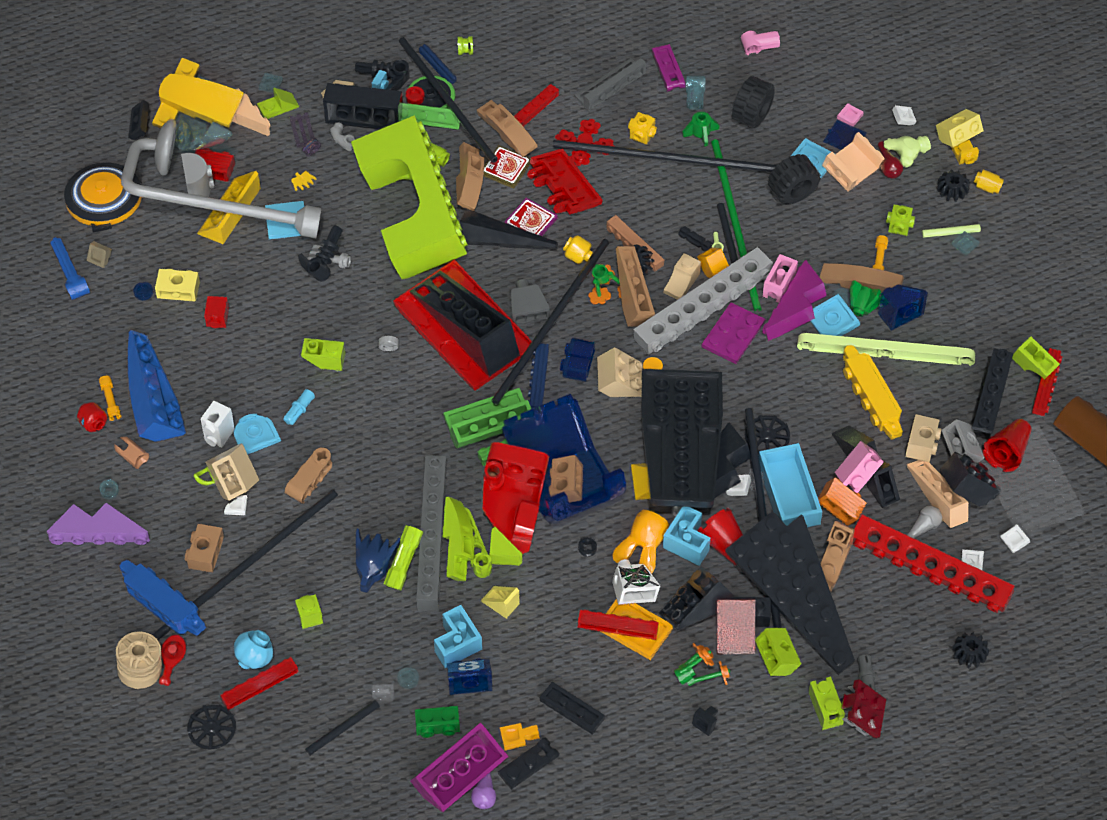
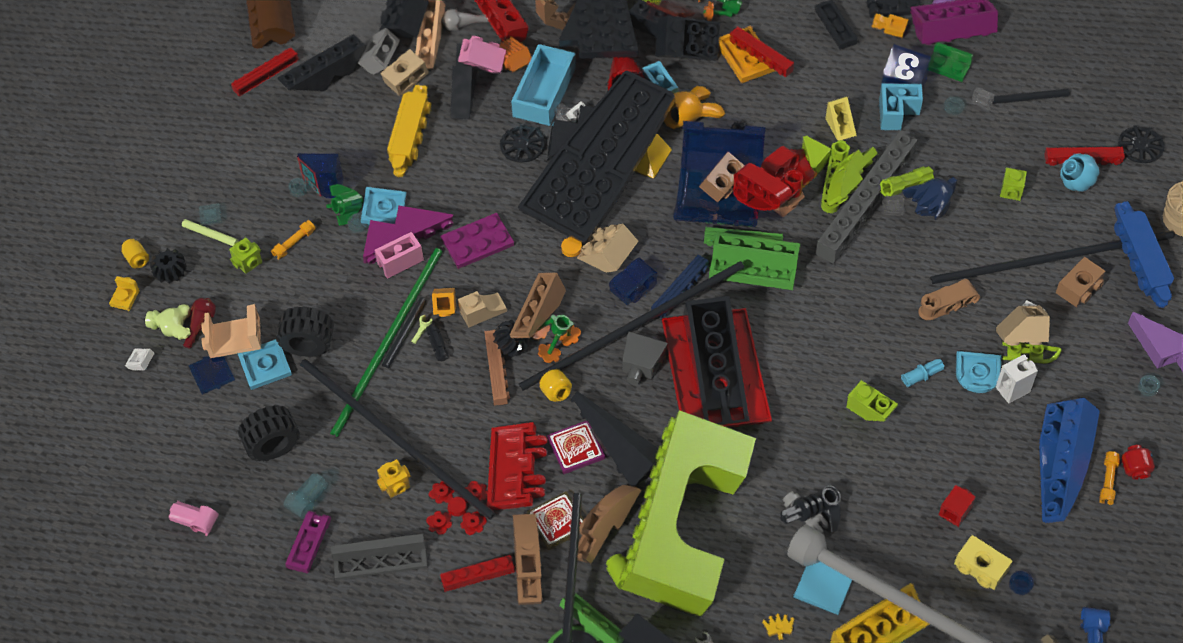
camera: 145 degrees left, 0 degrees up
(133, 454) = (1112, 408): nougat piece -> none
(172, 653) = (1154, 209): red piece -> none
(388, 343) = (800, 387): light grey tile -> none
(634, 583) = (726, 76): white torso -> none
(701, 126) = (335, 450): green brick -> none
(706, 292) = (472, 276): light grey brick -> none
(759, 489) = (563, 101): black piece -> none
(850, 115) = (185, 390): bright pink tile -> none
(865, 276) = (328, 224): medium nougat slope -> none
(896, 349) = (366, 156): yellowish green beam -> none
(959, 128) = (95, 310): light yellow brick -> none
(1008, 445) = (342, 27): red cone -> none
(1035, 358) = (259, 84): lime arch -> none

